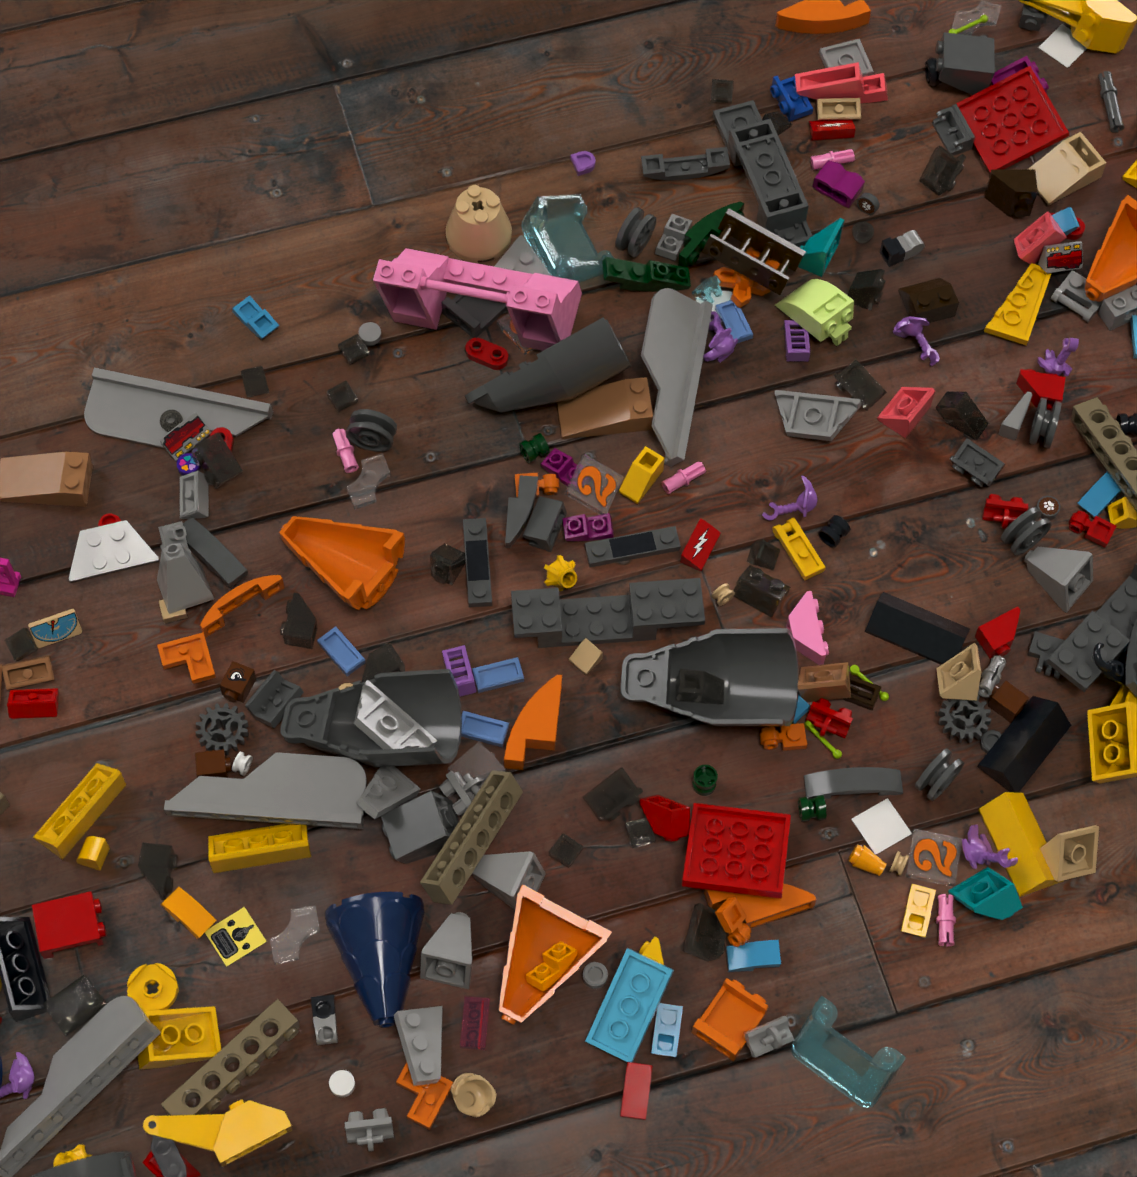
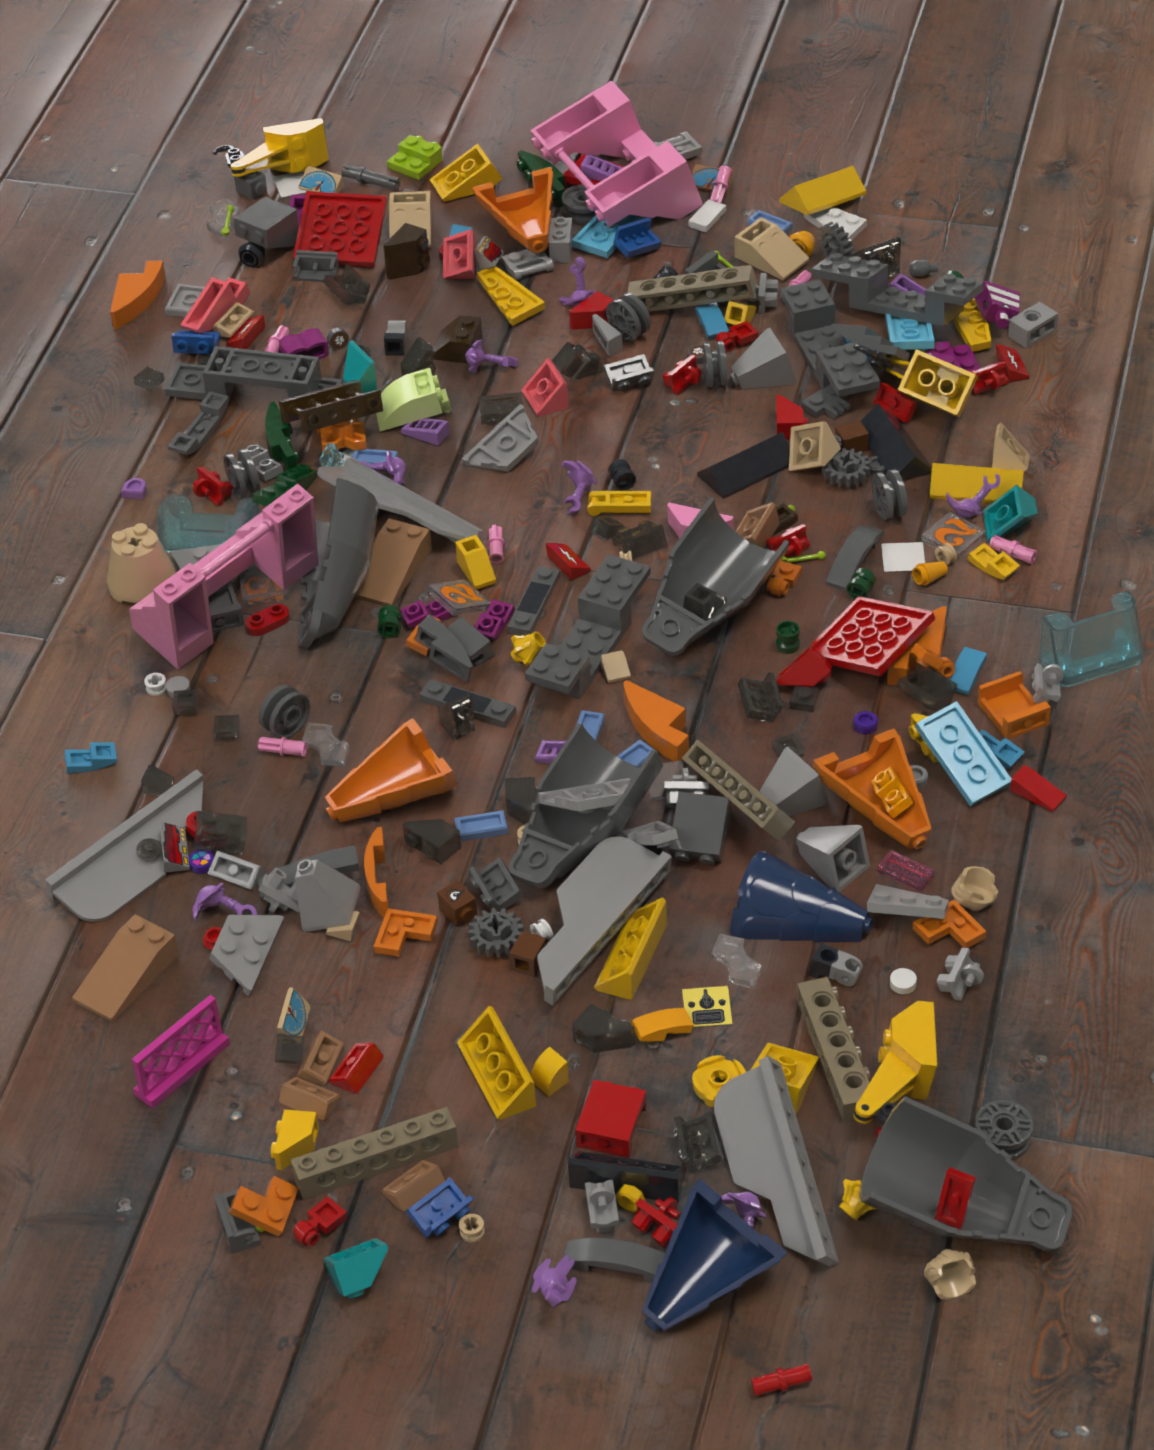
camera: 55 degrees left, 20 degrees down
(146, 496) = (214, 895): none -> medium lavender piece
(364, 309) = (155, 678): none -> white bush
(613, 215) = (209, 485): none -> red hips
(640, 899) = (865, 722): none -> dark purple tile
(1074, 67) = (321, 181): none -> slope
(1086, 701) = (895, 402): none -> red hinge

